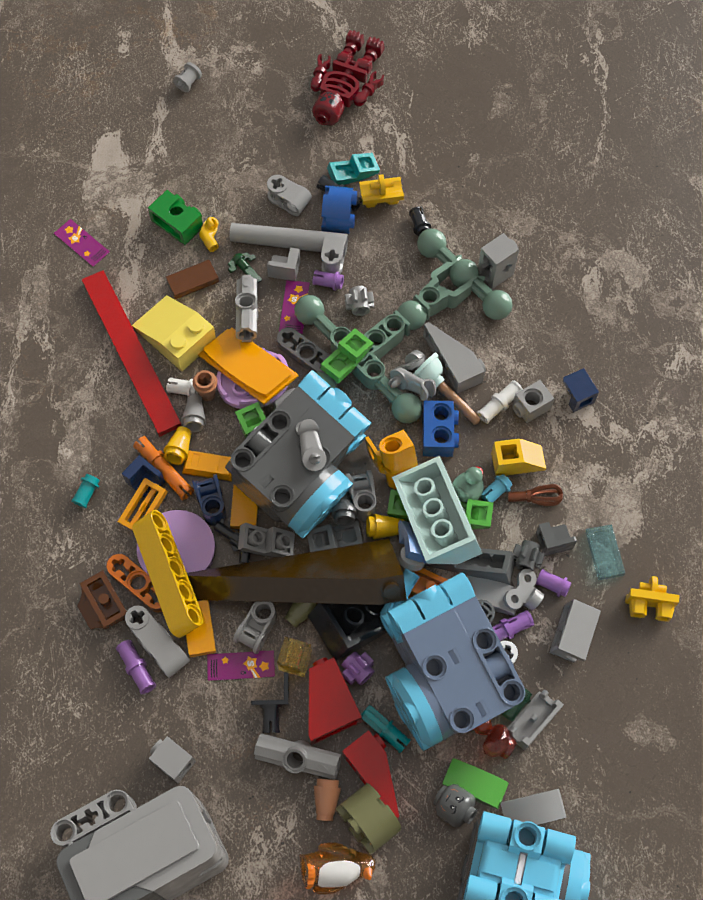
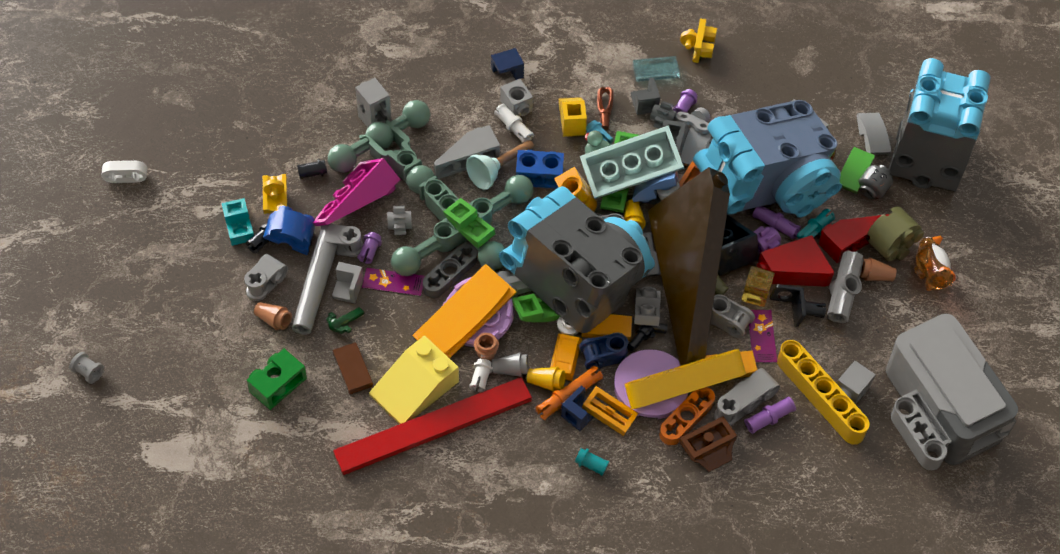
camera: 90 degrees left, 10 degrees down
(81, 242) = (288, 478): magenta sticker -> none
(147, 725) = (823, 402): none -> yellow beam
(208, 232) = (301, 353): yellow arm -> none
(244, 209) = (273, 315): none -> nougat cone
(246, 308) = (400, 312): light grey piece -> none
(311, 449) = (597, 224): light grey piece -> none
(341, 85) = (138, 220): dark red piece -> none
(383, 691) = (776, 221): none -> medium lavender pin
(398, 269) = (362, 186): none -> dark pink wedge
(400, 71) = (124, 171): none -> white beam
(406, 380) = (493, 185): light grey piece -> none
(413, 361) = (472, 183): light grey piece -> none
(575, 631) = (727, 92): light grey hinge -> none

